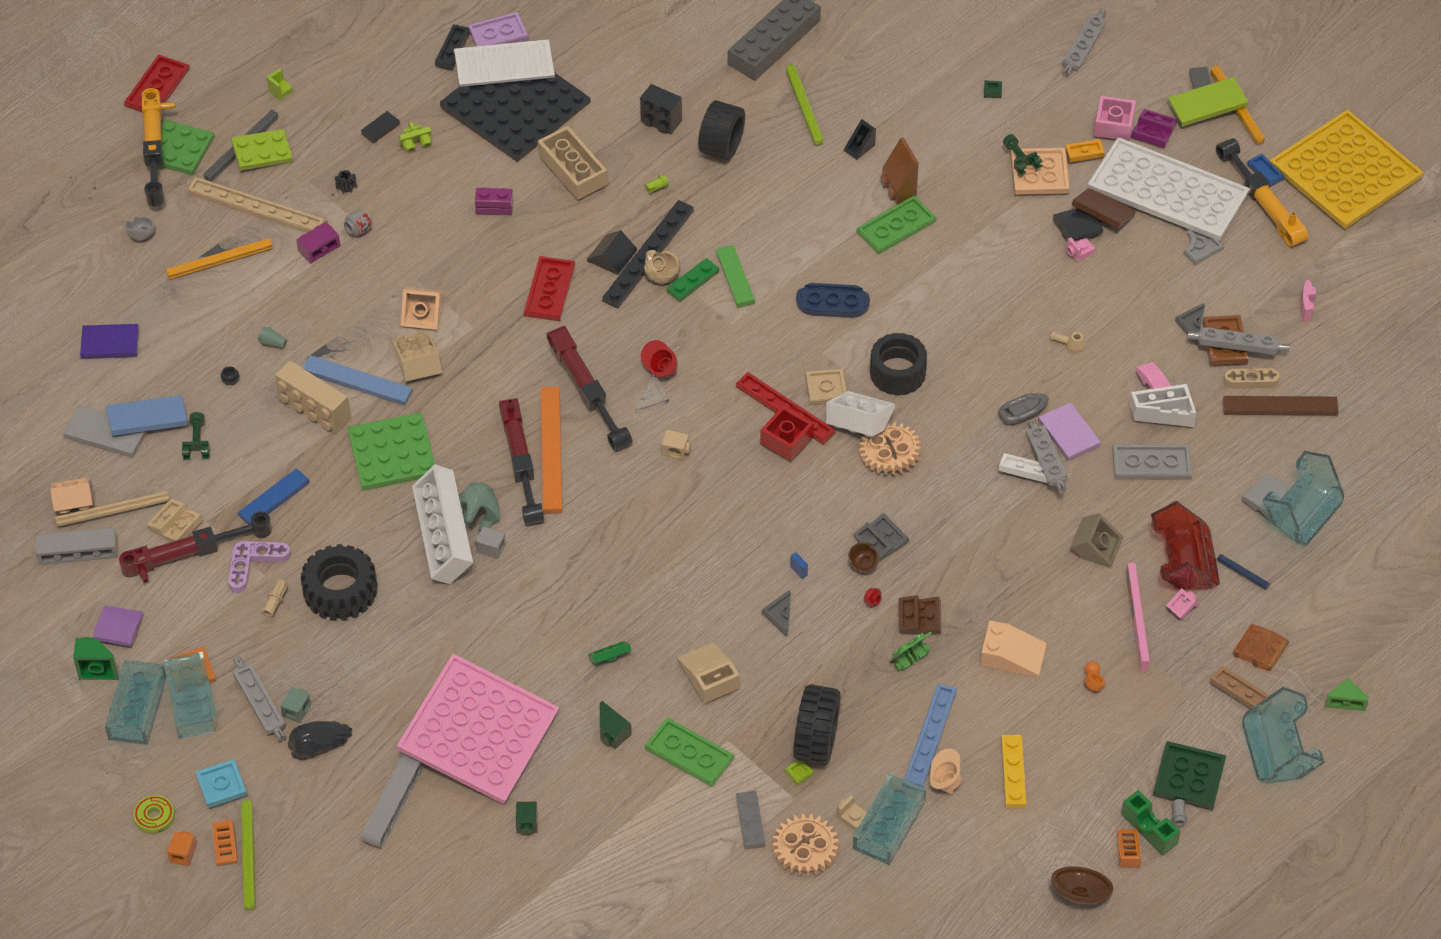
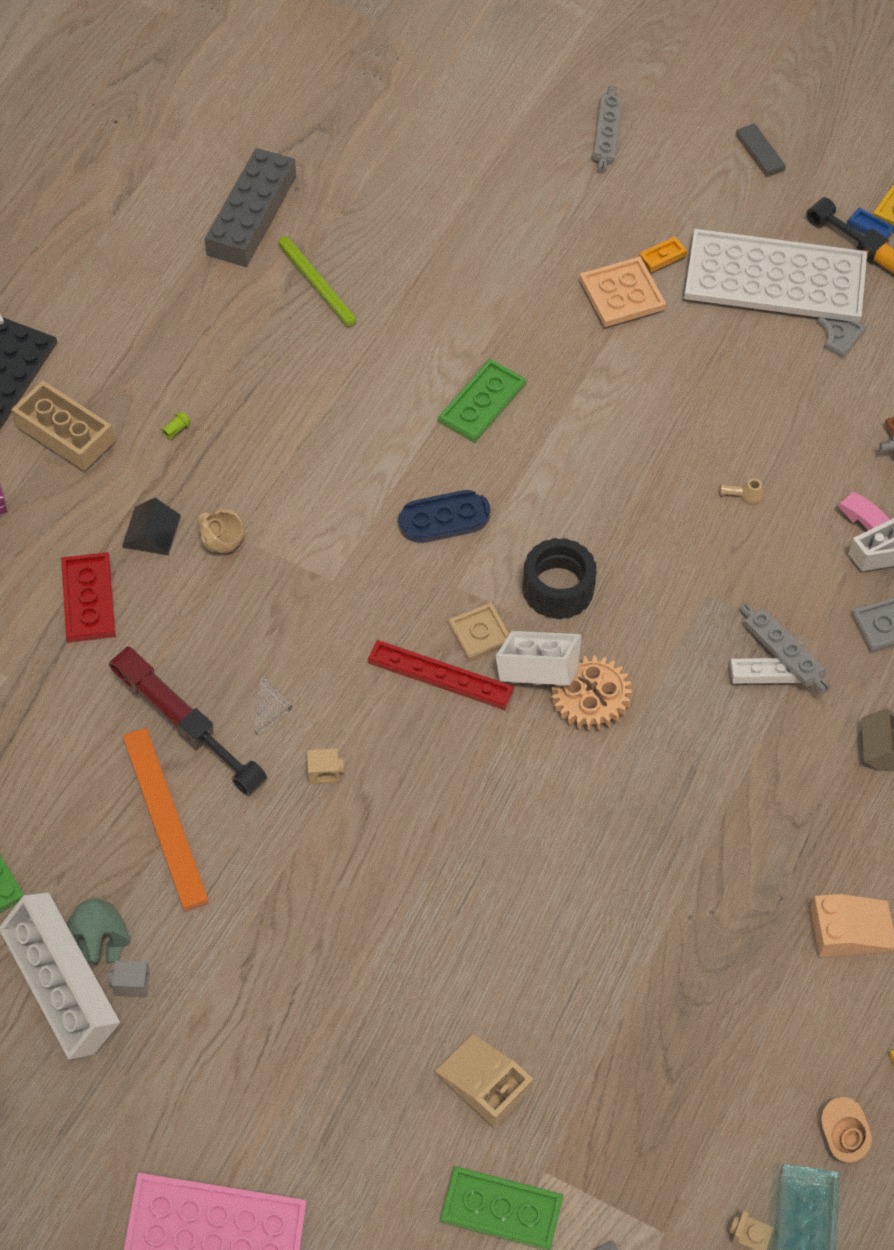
camera: 20 degrees left, 5 degrees up
(520, 457) = (130, 844): piece -> none
(610, 652) = (344, 1092): green plate -> none
(613, 727) = (387, 1205): dark green slope -> none
(657, 241) = (201, 501): black plate -> none
(659, 359) = (262, 654): red piece -> none
(661, 109) = (149, 330): black brick -> none
(692, 279) = (264, 536): green plate -> none
(721, 130) = (234, 337): black tyre -> none
(735, 276) = (314, 517): bright green tile -> none
(778, 612) = (540, 962): dark grey tile -> none
(786, 433) = (459, 710): red brick -> none
(799, 565) = (542, 888): blue tile -> none
(799, 772) = (655, 1190): lime tile -> none
(816, 724) = (666, 1124): black tyre -> none
(861, 140) = (402, 306): black slope -> none
(863, 557) = (620, 853): reddish brown hair -> none
(873, 597) = (651, 904): red plate -> none
(882, 536) = (627, 816): dark grey slope -> none
(900, 173) = (468, 335): dark orange slope -> none
(910, 651) = (733, 964): bright green hinge -> none
(919, 615) = (718, 911): reddish brown slope -> none
(930, 735) = (801, 1083): medium blue tile -> none
(992, 89) = (527, 208): dark green tile -> none
(1023, 160) = (600, 289): dark green bar -> none
(1023, 407) = (727, 592): flat silver piece -> none
(1069, 431) = (793, 606): lavender tile -> none
(1077, 224) = (693, 343): black slope -> none
(1079, 249) = (706, 373): bright pink bracket -> none
(1103, 208) = (714, 317): reddish brown tile -> none
(1114, 118) = (682, 207): bright pink brick -> none
(1154, 128) = (727, 208): magenta slope -> none
(1191, 320) = (871, 428): dark grey tile -> none
(1208, 101) = (775, 162): lime tile -> none
(1243, 113) = (807, 158): light orange axle -> none

